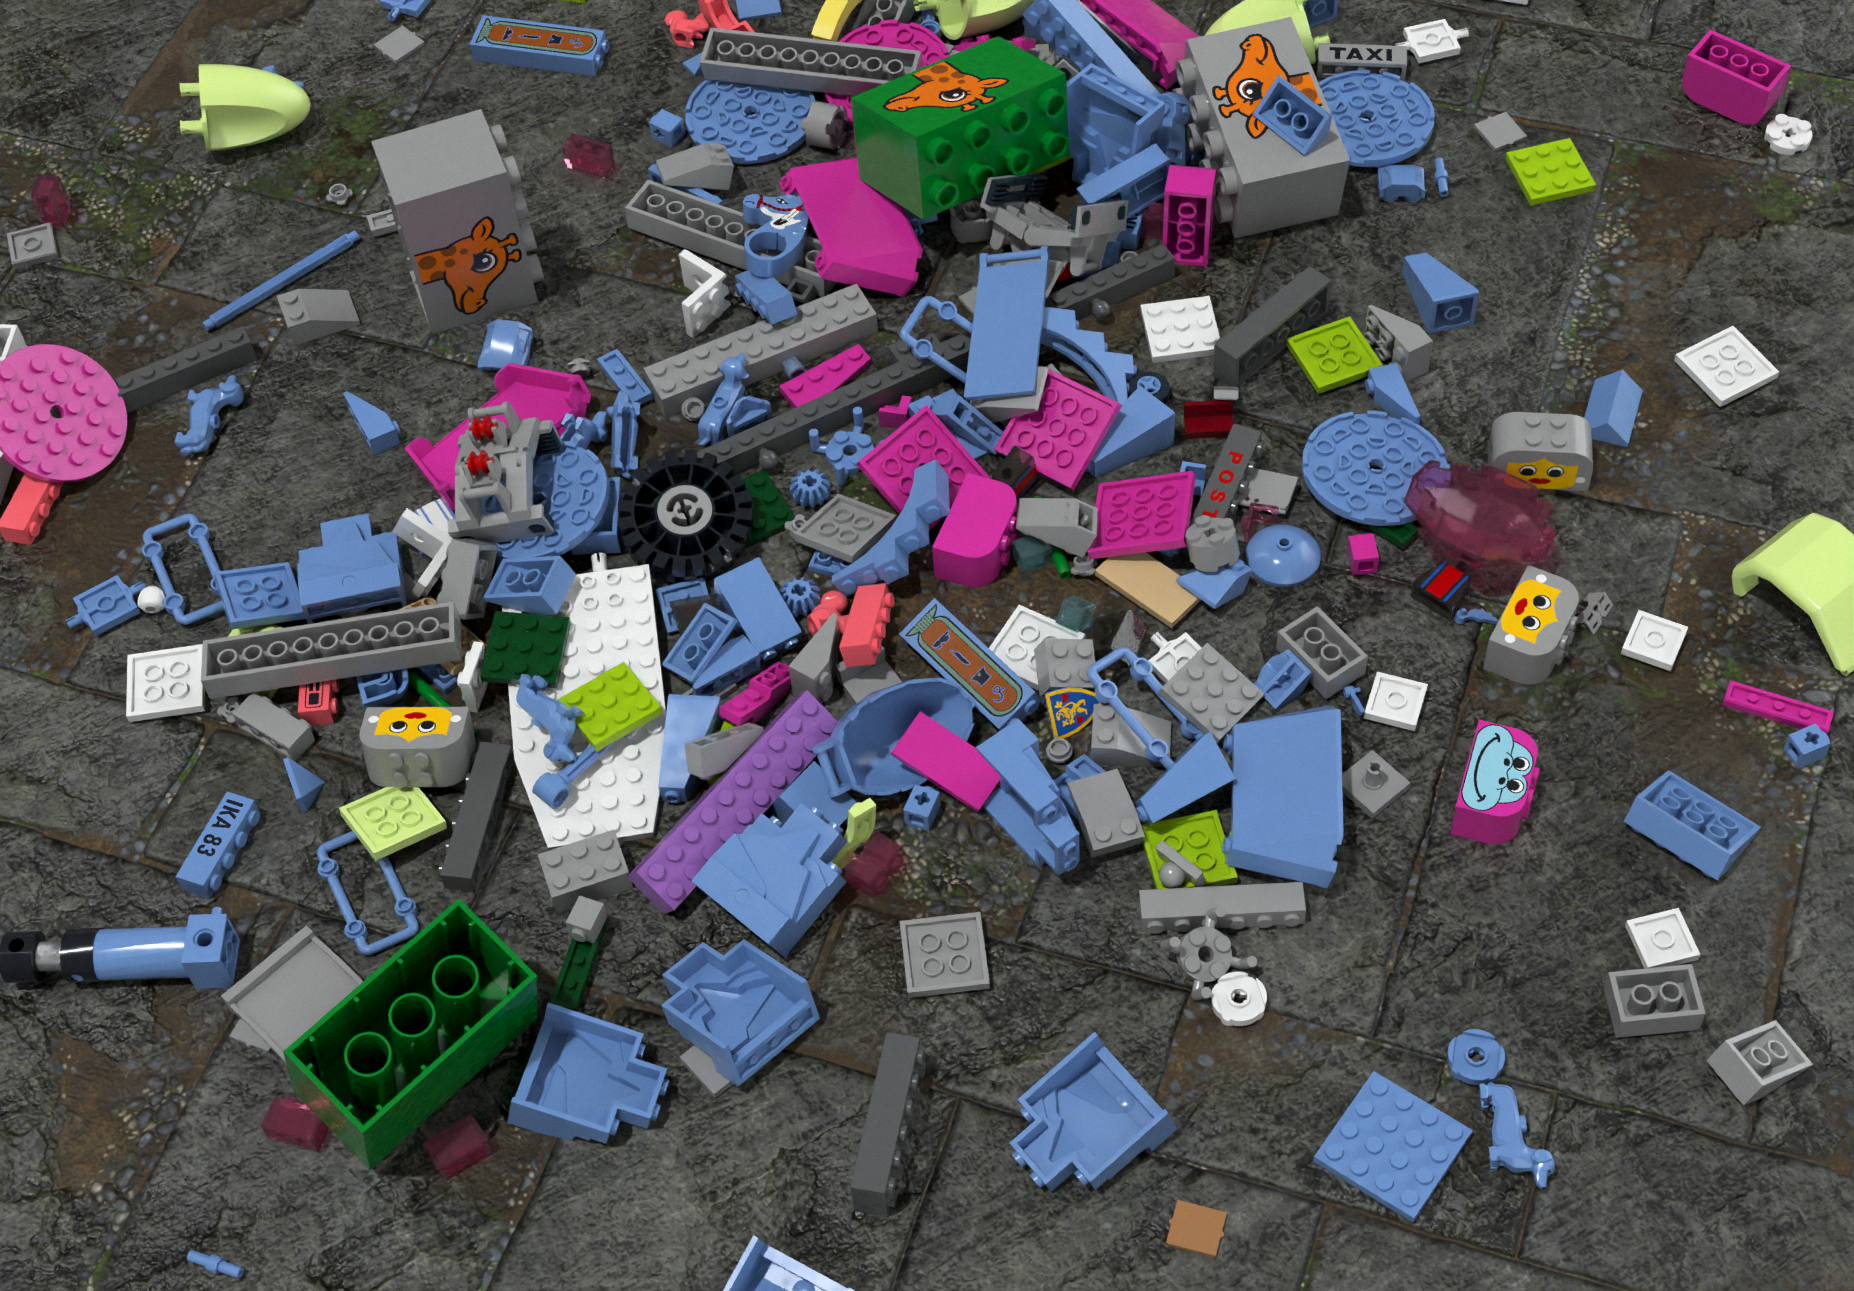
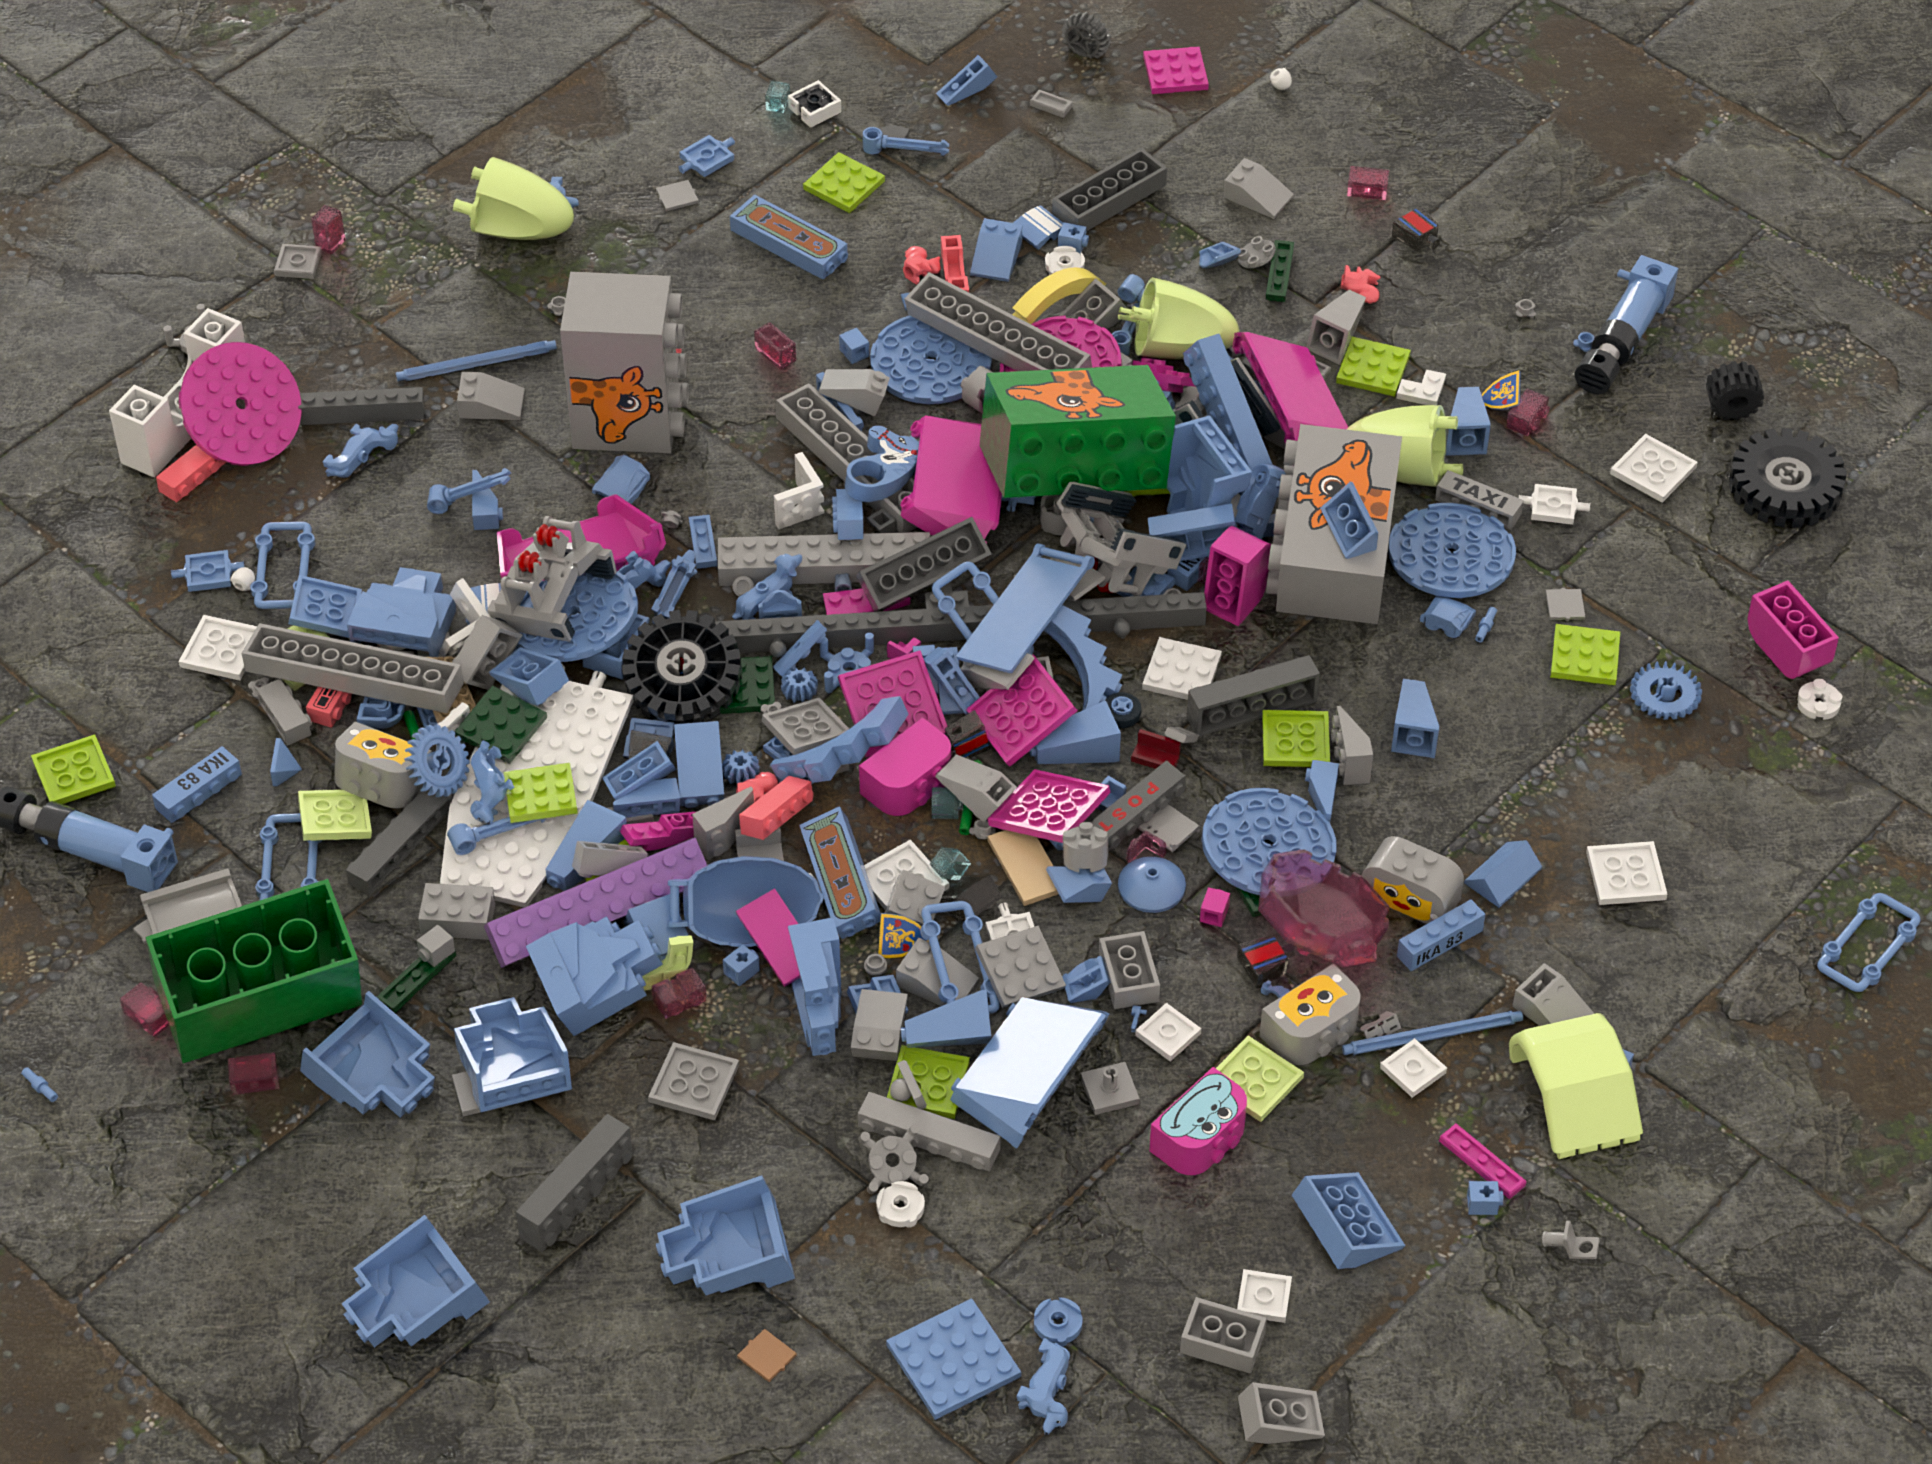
camera: 20 degrees right, 5 degrees down
(67, 884) = (73, 770): none -> lime plate
(323, 433) = (441, 497): none -> medium blue piece
(479, 721) = (430, 766): none -> medium blue gear
(794, 449) = (801, 648): none -> medium blue tile
(874, 318) = (922, 564): none -> dark grey brick
(1512, 705) = (1261, 1075): none -> yellowish green plate
(1596, 495) = (1440, 935): none -> medium blue brick
(1647, 598) = (1432, 1032): none -> medium blue piece
(1648, 168) = (1668, 681): none -> medium blue gear
(1743, 519) = (1549, 998): none -> light grey slope

